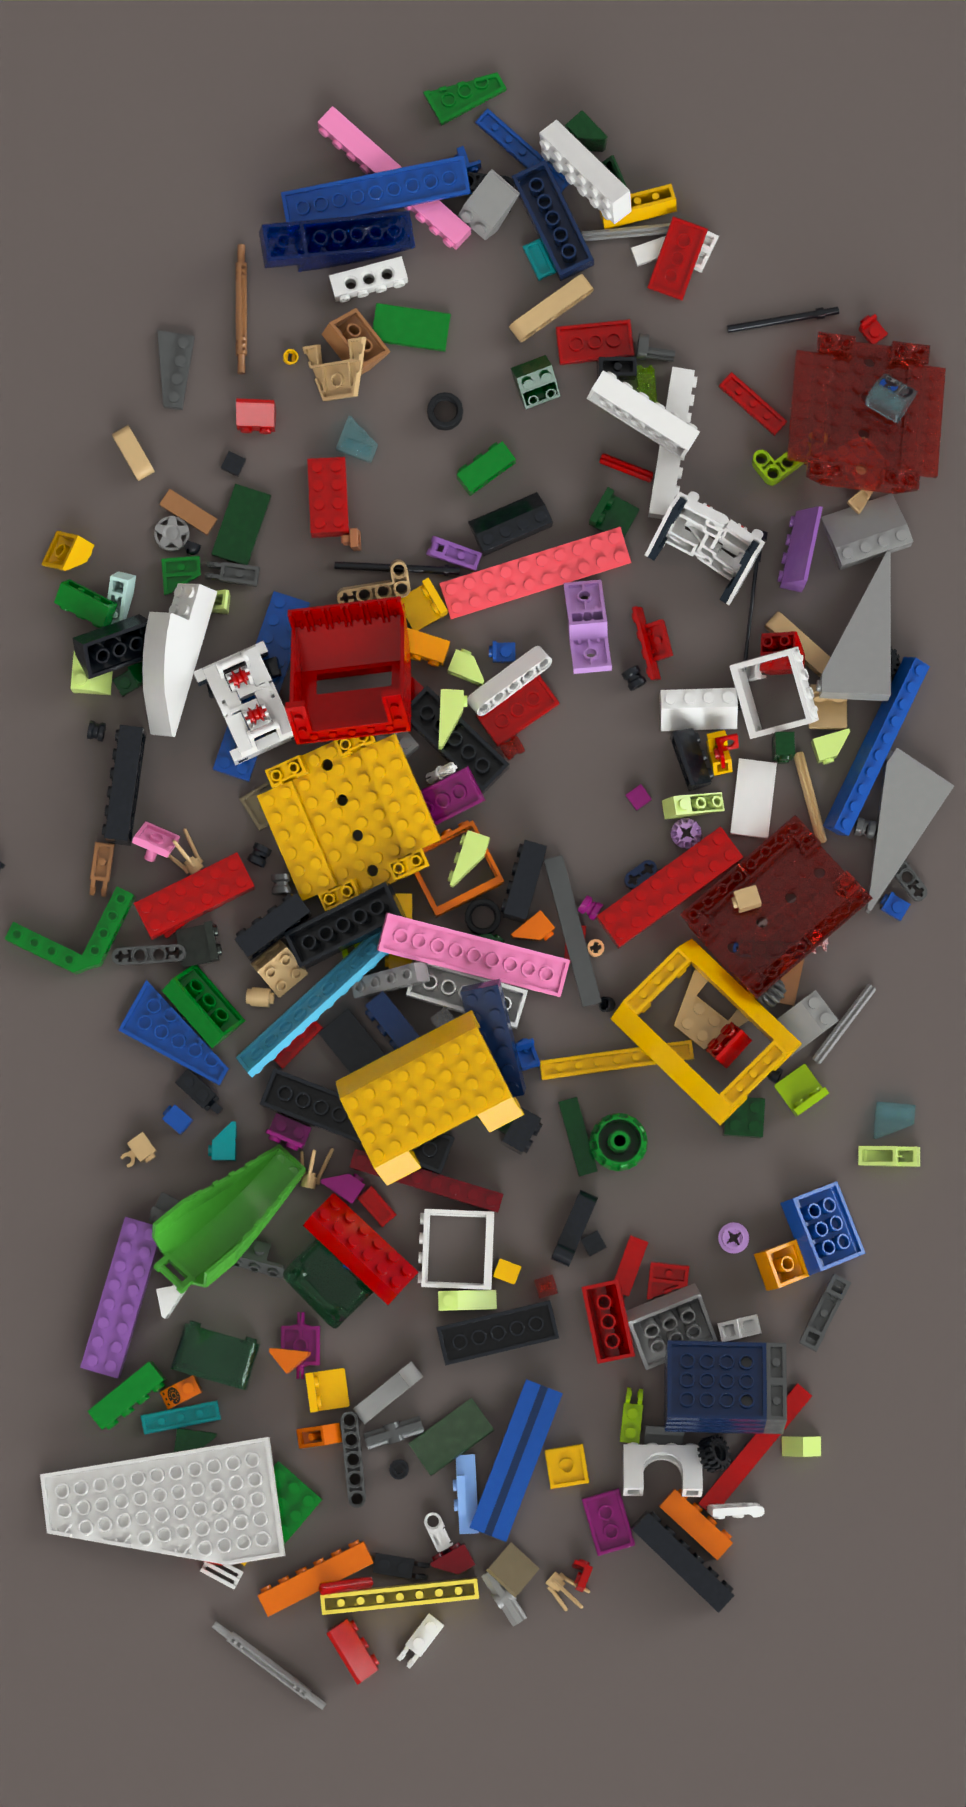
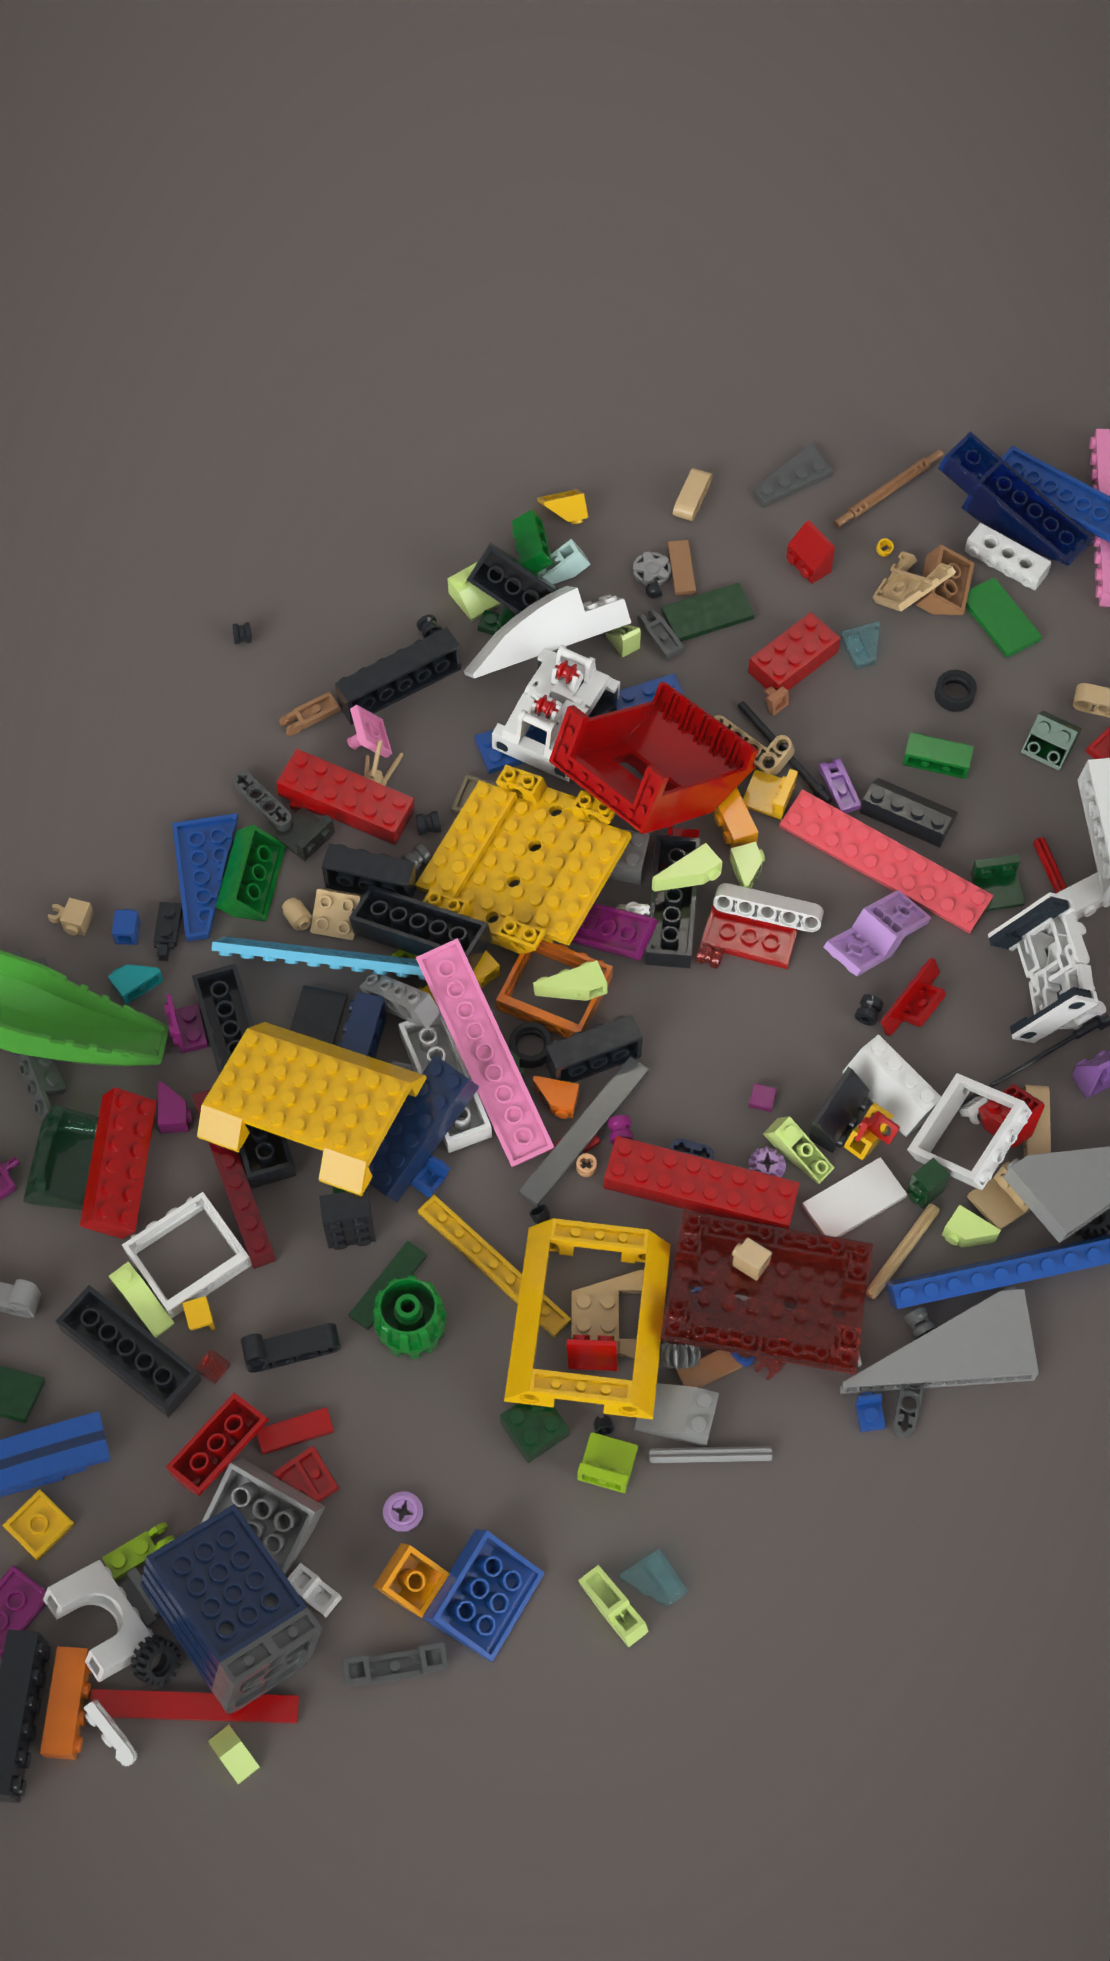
camera: 55 degrees right, 20 degrees down
(97, 946) = (236, 755): green brick -> none
(179, 571) = (626, 588): green wing -> none
(233, 463) = (754, 571): black tile -> none
(289, 1053) = (279, 974): red tile -> none
(309, 1179) = (156, 1074): tan plant -> none
(376, 1206) = (175, 1154): red tile -> none
(502, 652) = (788, 885): blue bracket -> none
(593, 1243) = (291, 1379): black tile -> none

